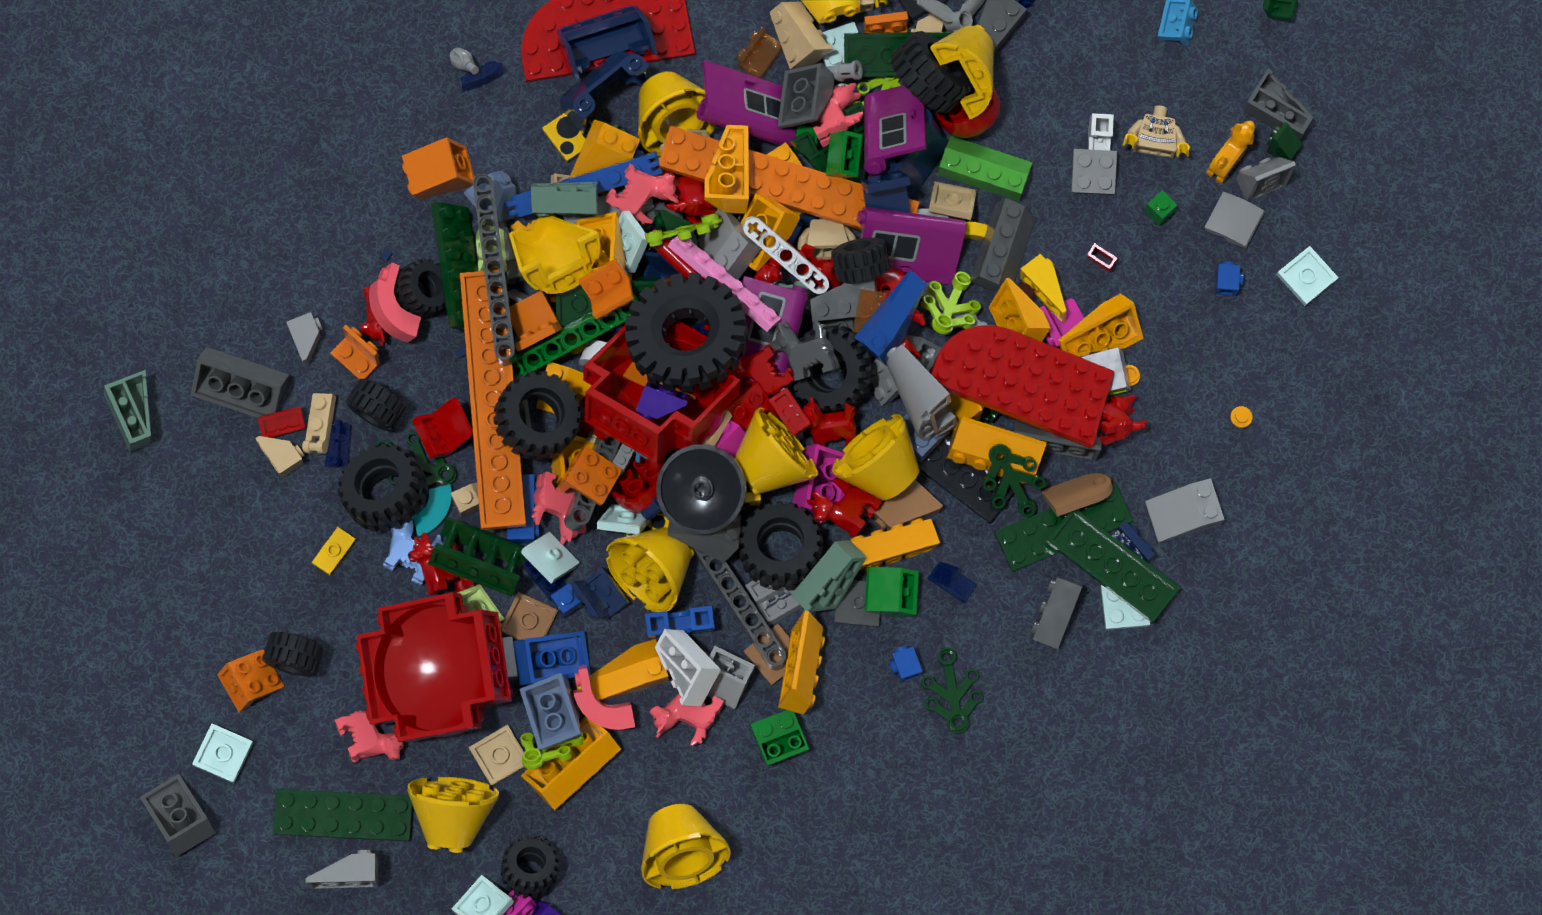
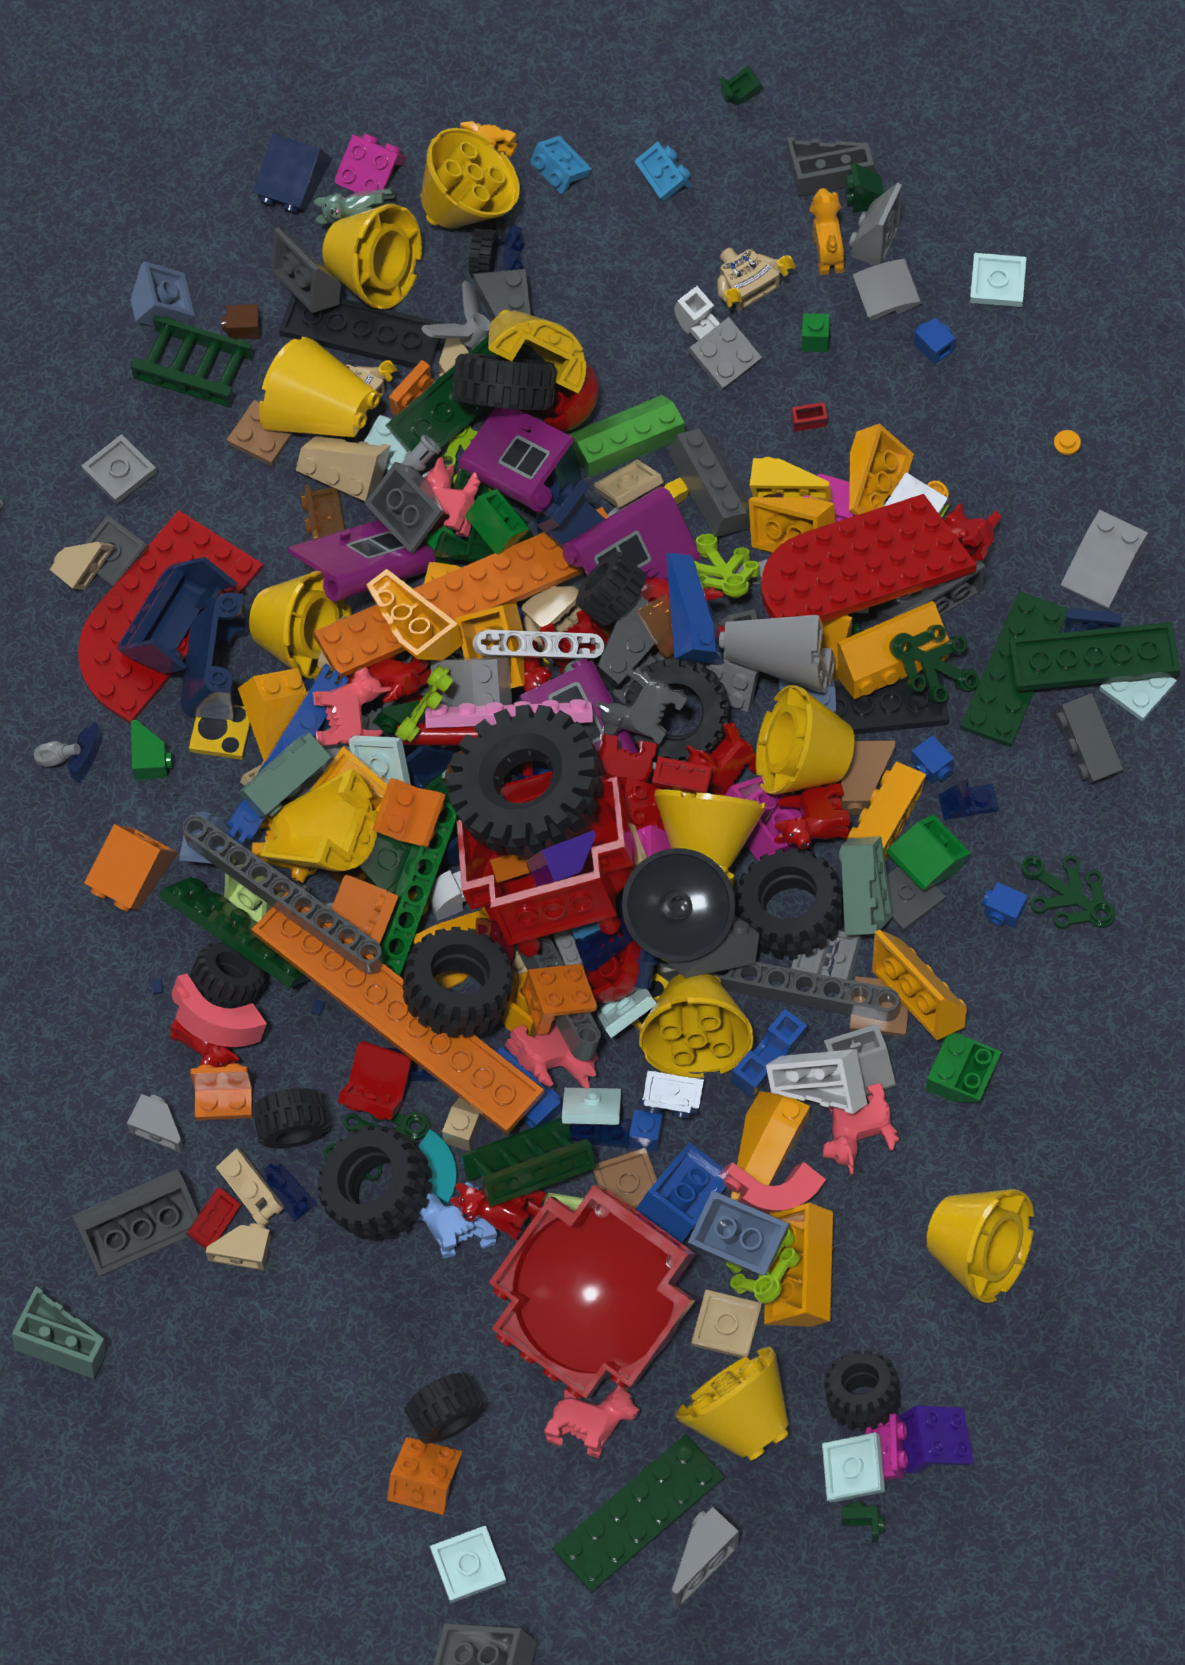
camera: 35 degrees left, 10 degrees down
(333, 551) = (382, 1288): yellow plate -> none
(514, 110) = (148, 754): none -> green slope
(630, 474) = (594, 956): none -> clear blue slope
(954, 538) = (932, 760): none -> blue brick
(1077, 493) = (998, 626): medium nougat tile -> none

